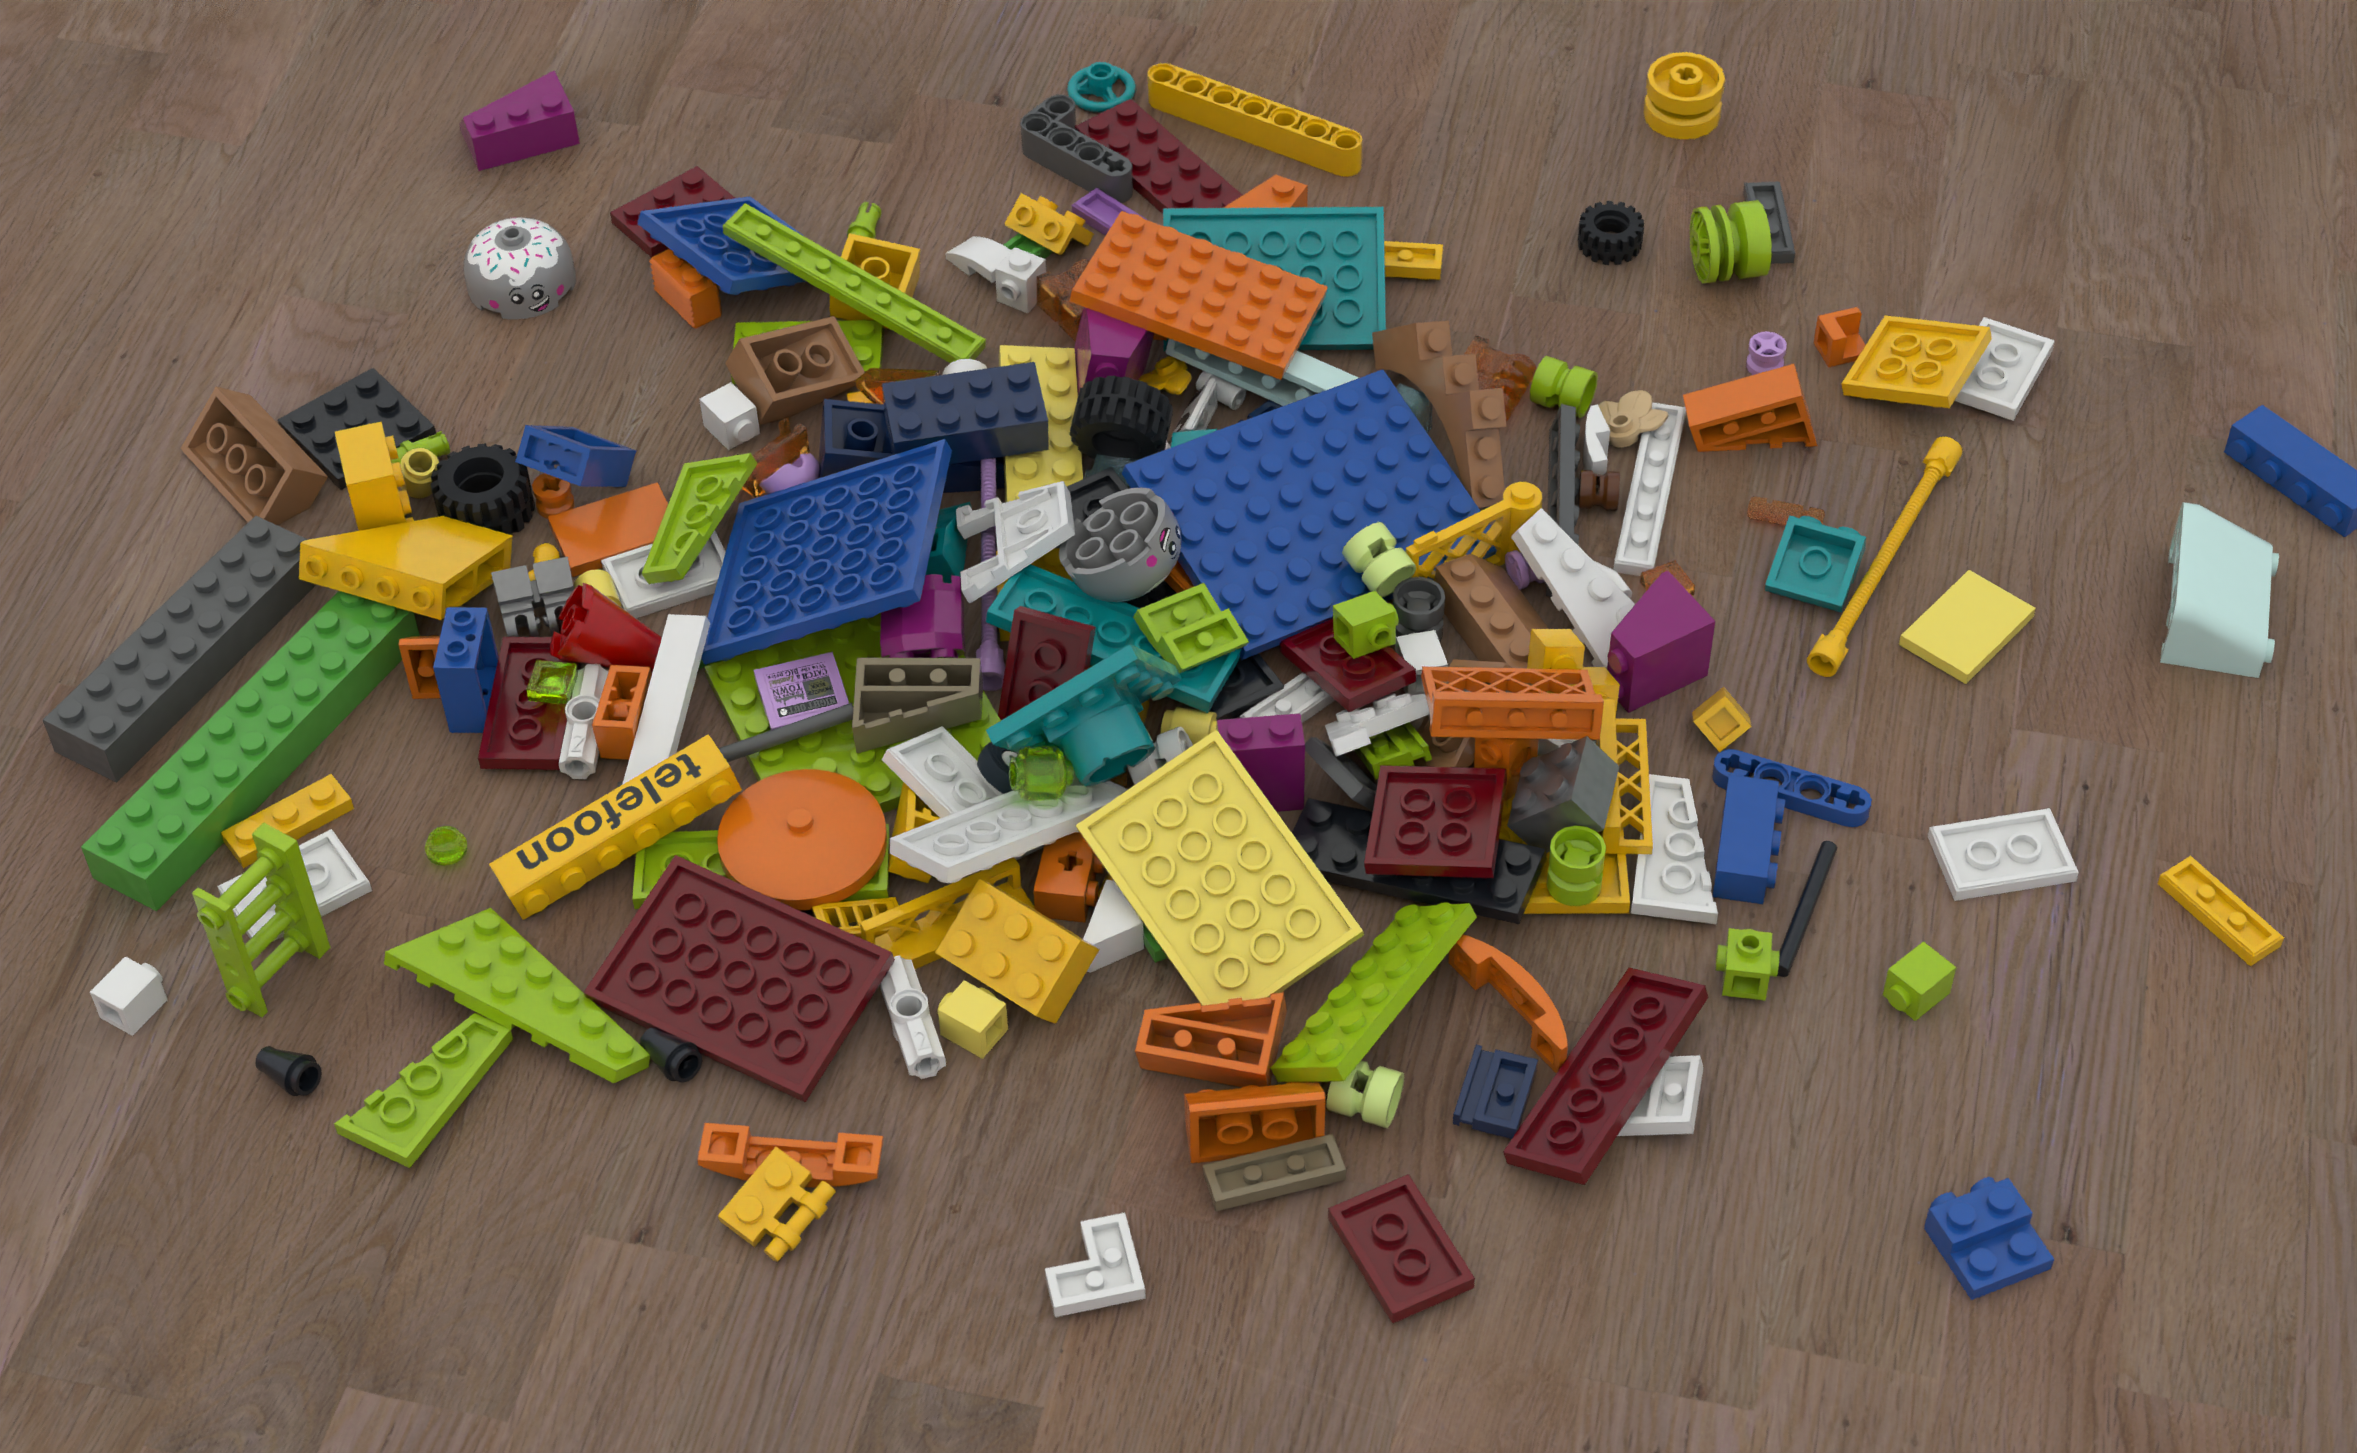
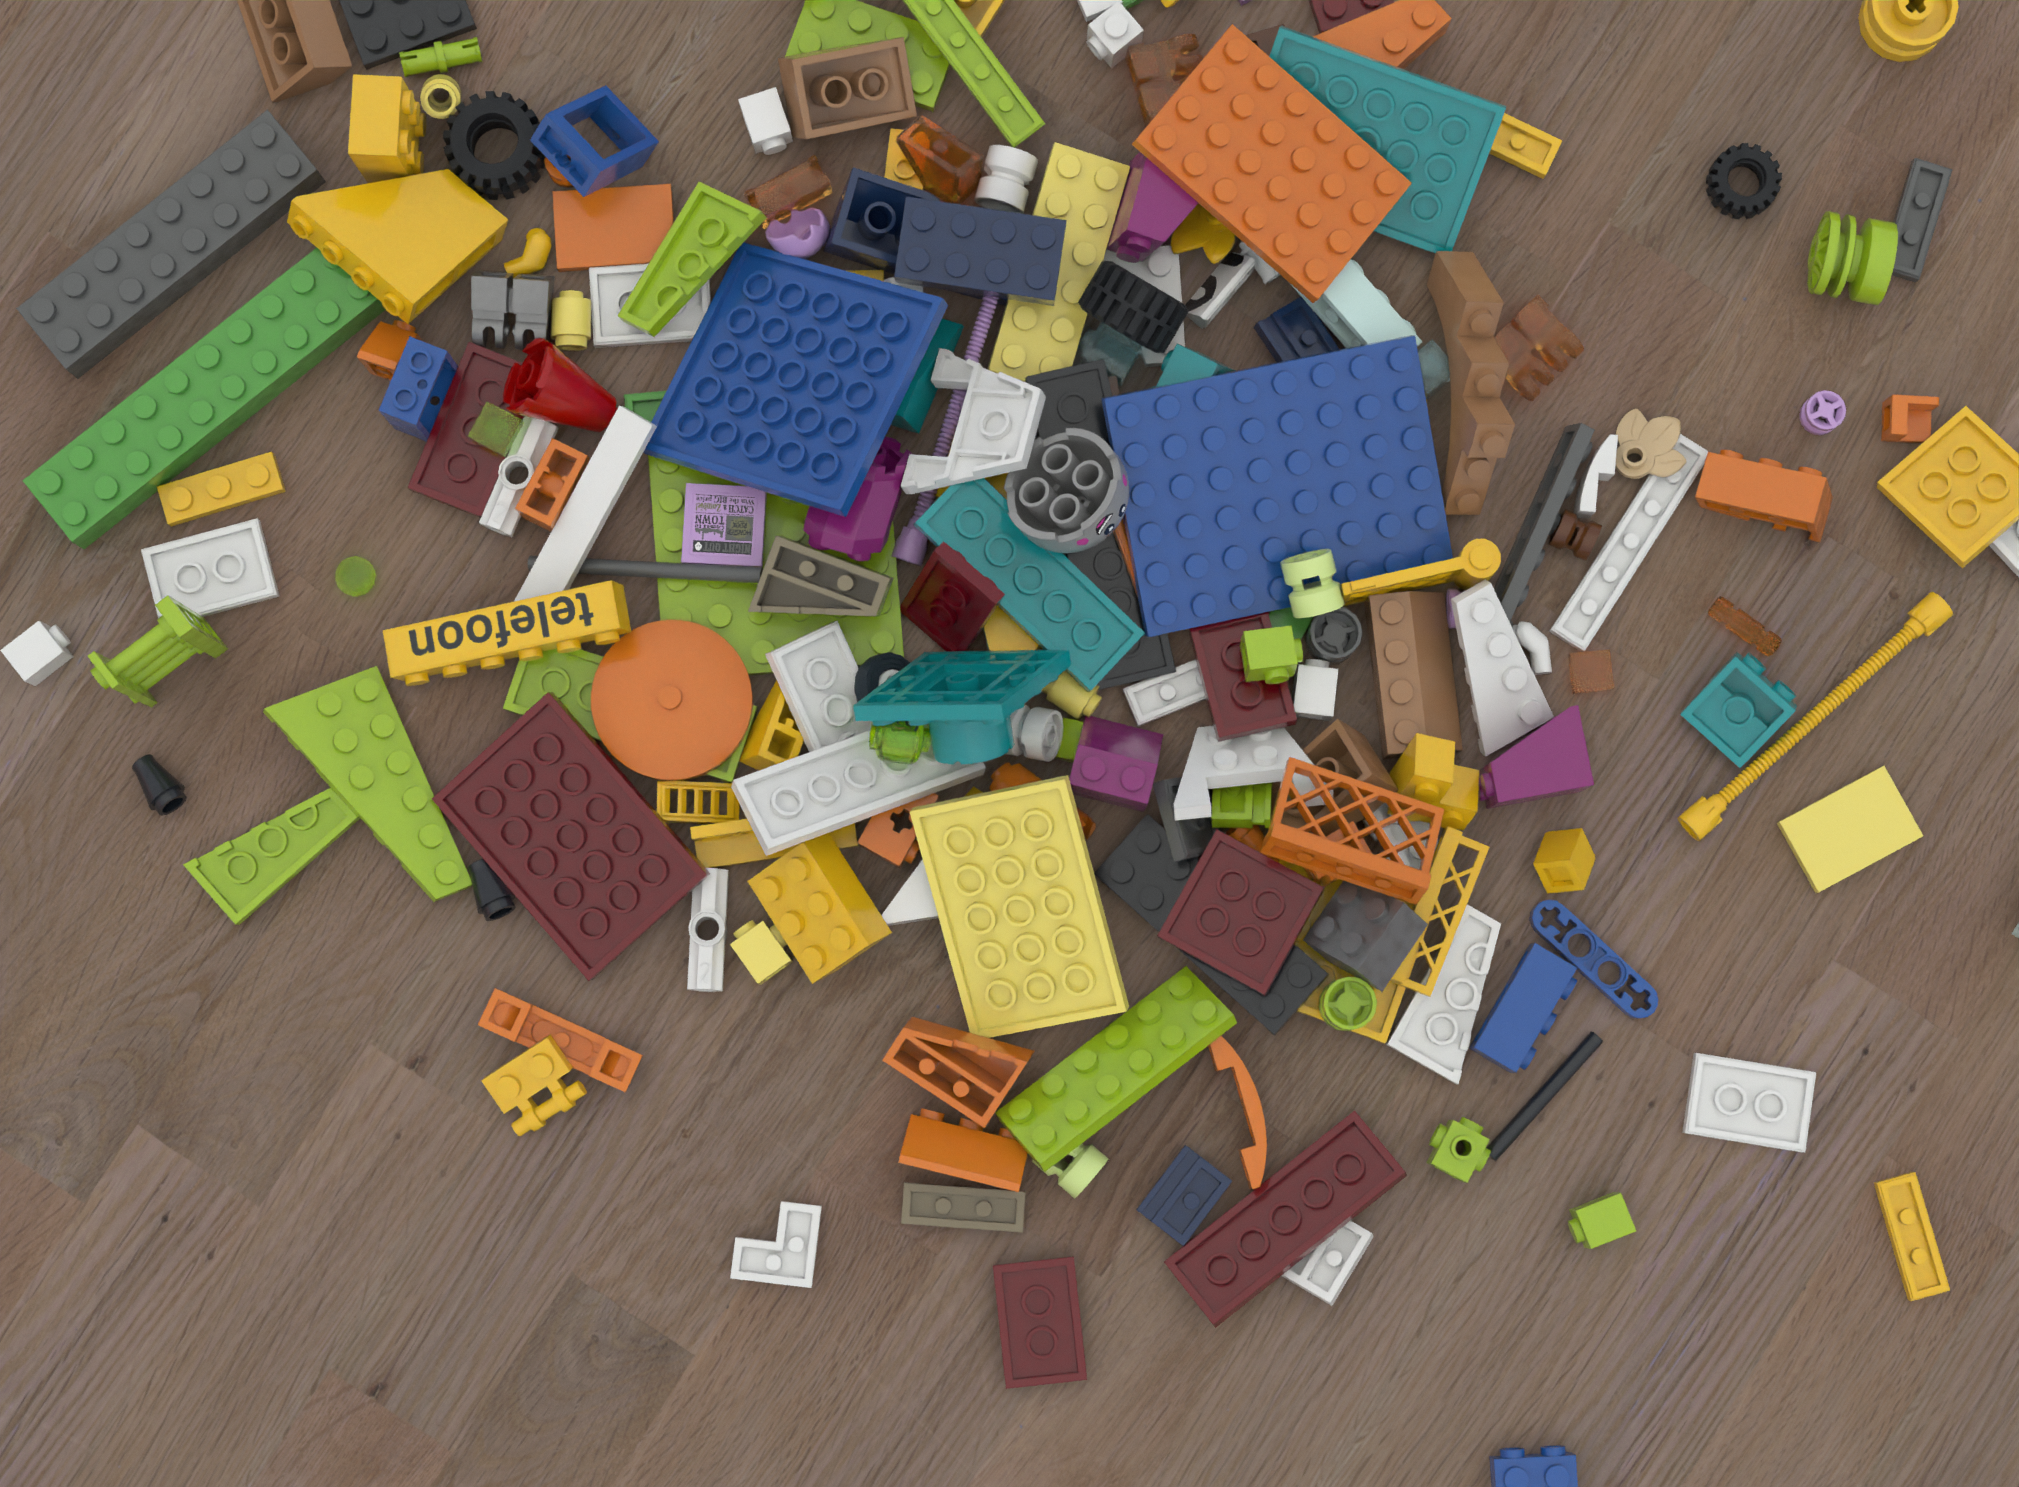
camera: 15 degrees right, 35 degrees up
(1190, 628) = (1102, 602): lime slope -> none
(1560, 385) = (1598, 388): lime wheel -> none

